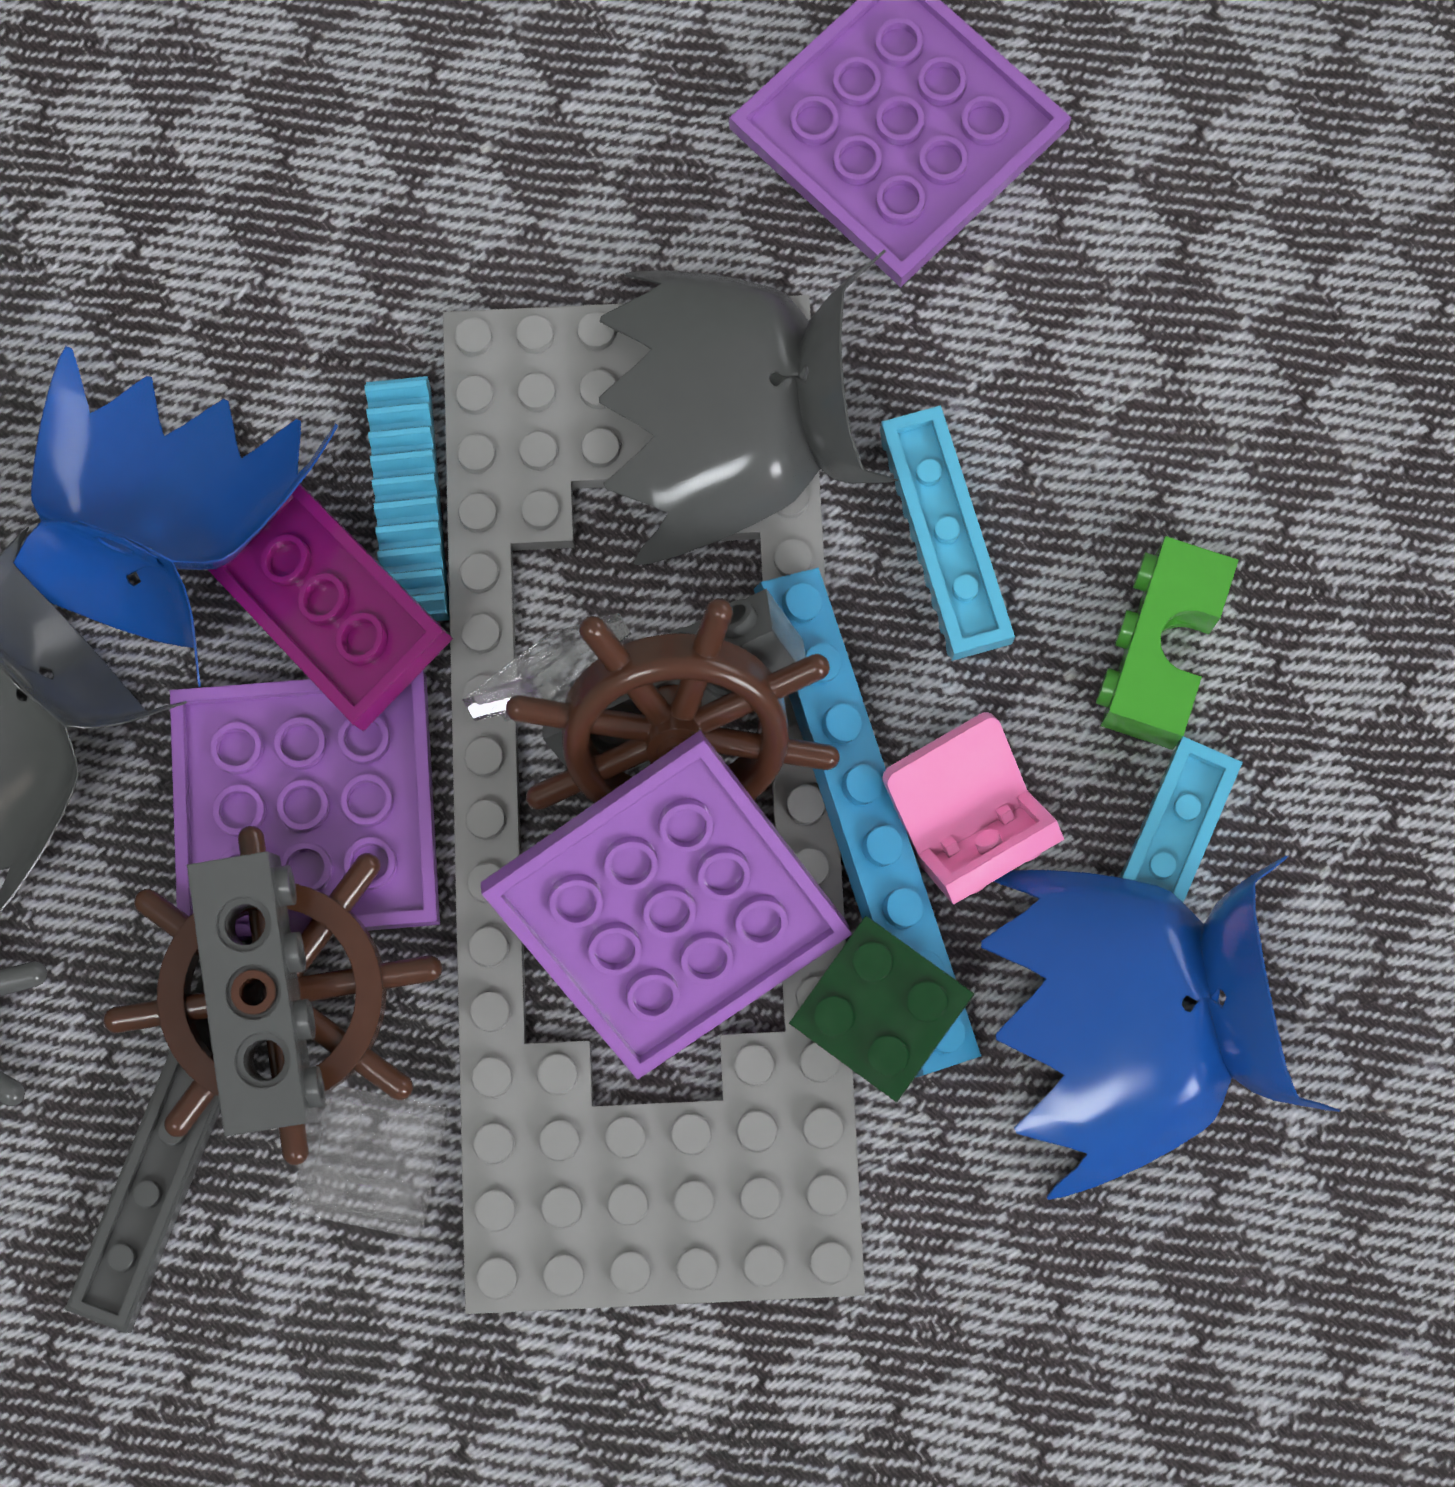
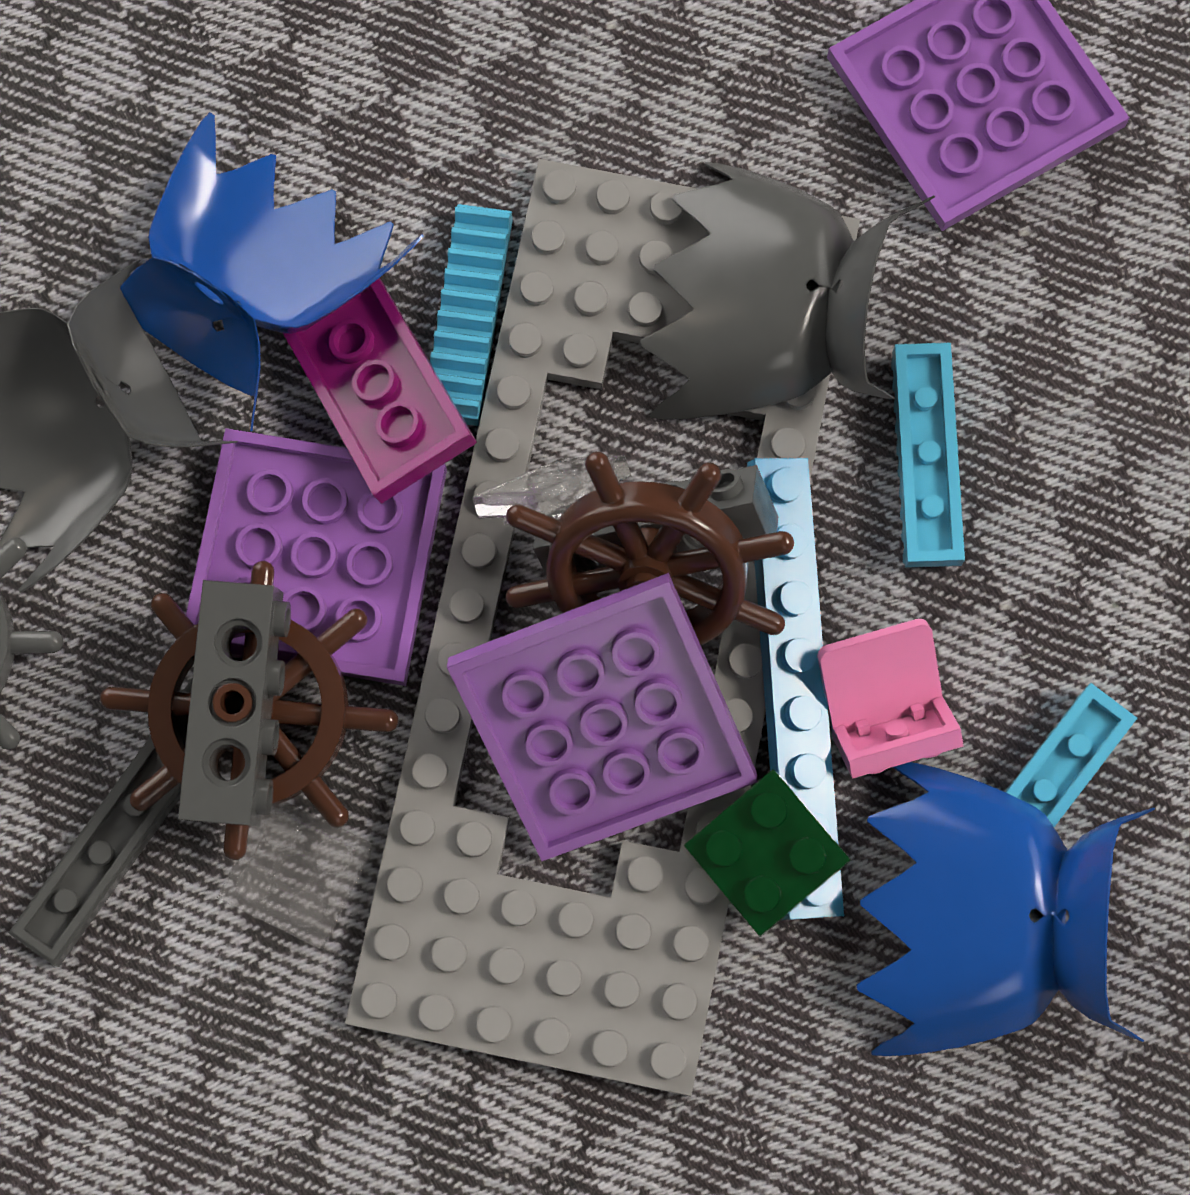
camera: 15 degrees right, 0 degrees up
(1148, 693) = (1121, 554): bright green arch -> none

